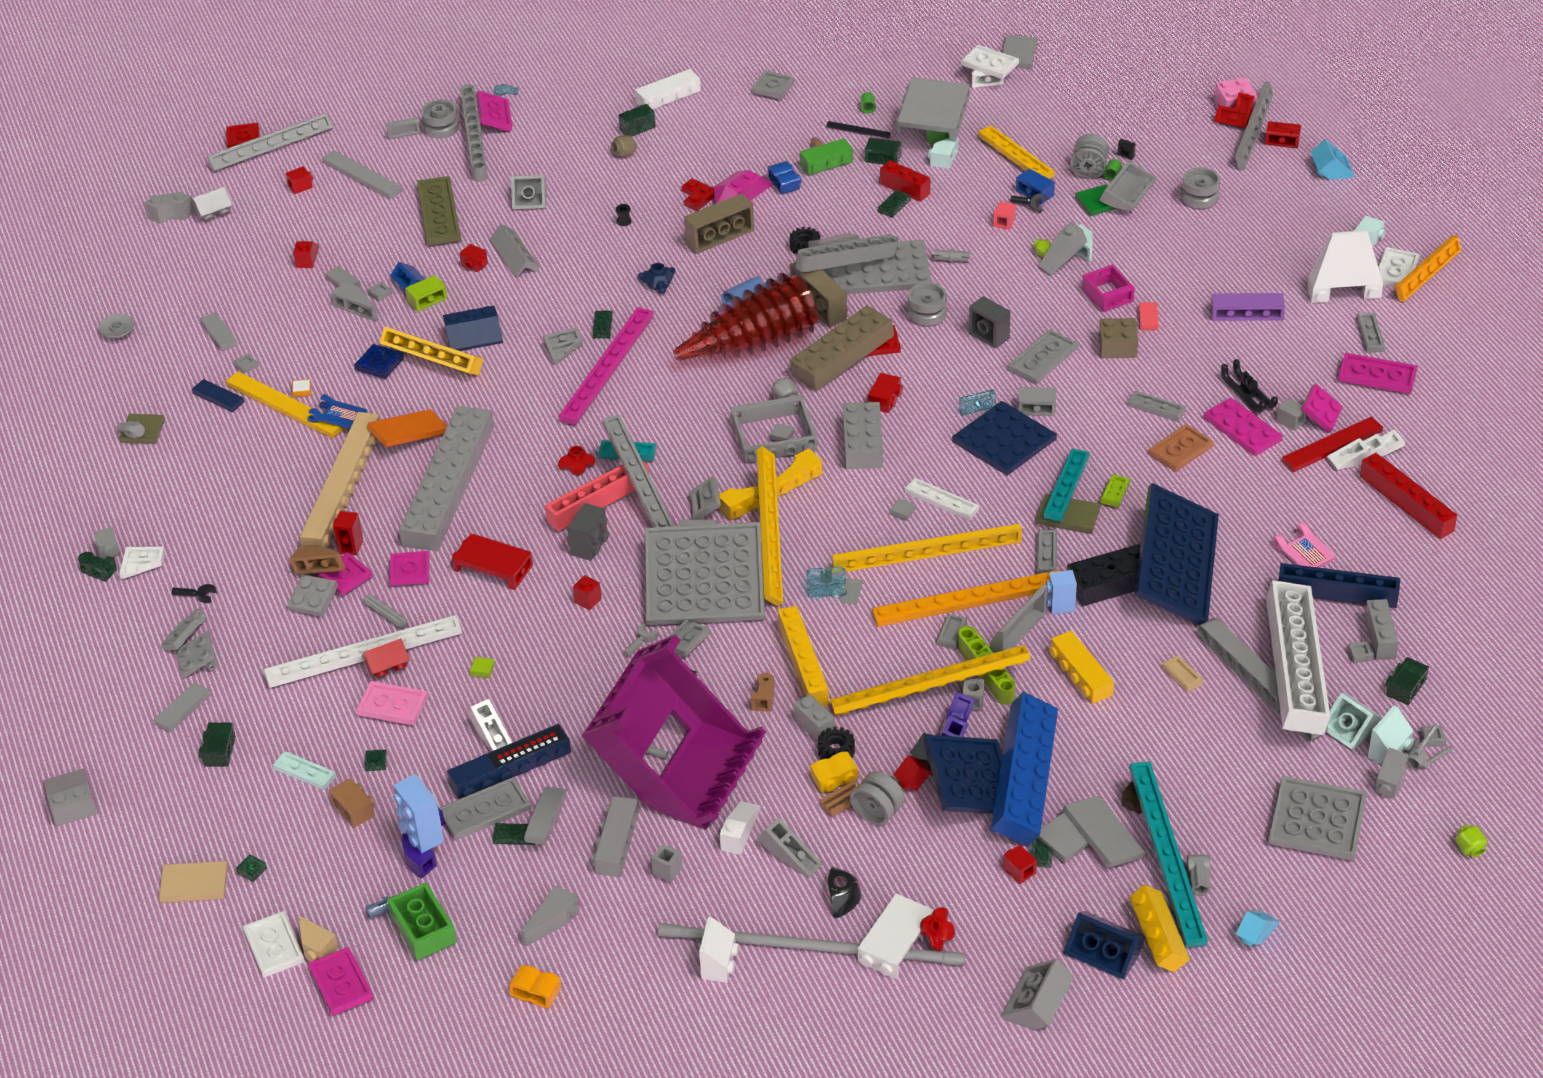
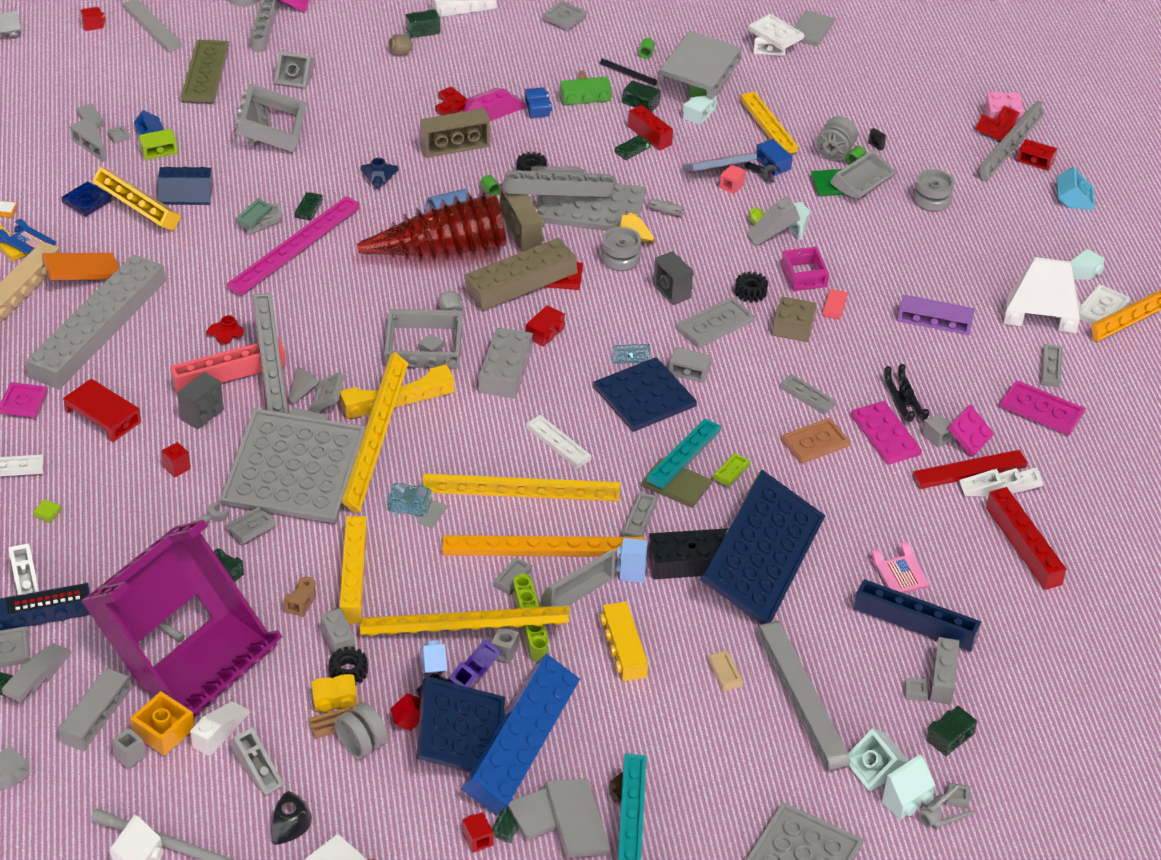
camera: 10 degrees right, 0 degrees up
(305, 254) = (66, 86): red slope -> none
(473, 258) = (216, 120): red brick -> none
(525, 260) = (265, 133): none -> light grey window
(555, 342) = (253, 214): none -> sand green tile
(623, 215) = (372, 107): black bush -> none
(645, 450) = (285, 332): teal plate -> none
(675, 496) = (301, 384): none -> light grey tile
(689, 833) = (162, 723): none -> light orange brick
(773, 267) = (490, 185): none -> bright green beam
(902, 509) = (515, 443): light grey tile -> none
(921, 718) = (433, 658): none -> light blue brick
(933, 276) = (635, 223): none -> yellow slope
(986, 201) = (723, 161): none -> sand blue tile
(1064, 316) = (751, 287): none -> black tyre
(1297, 658) = (841, 682): white brick -> none
(1392, 773) = (895, 826): light grey slope -> none

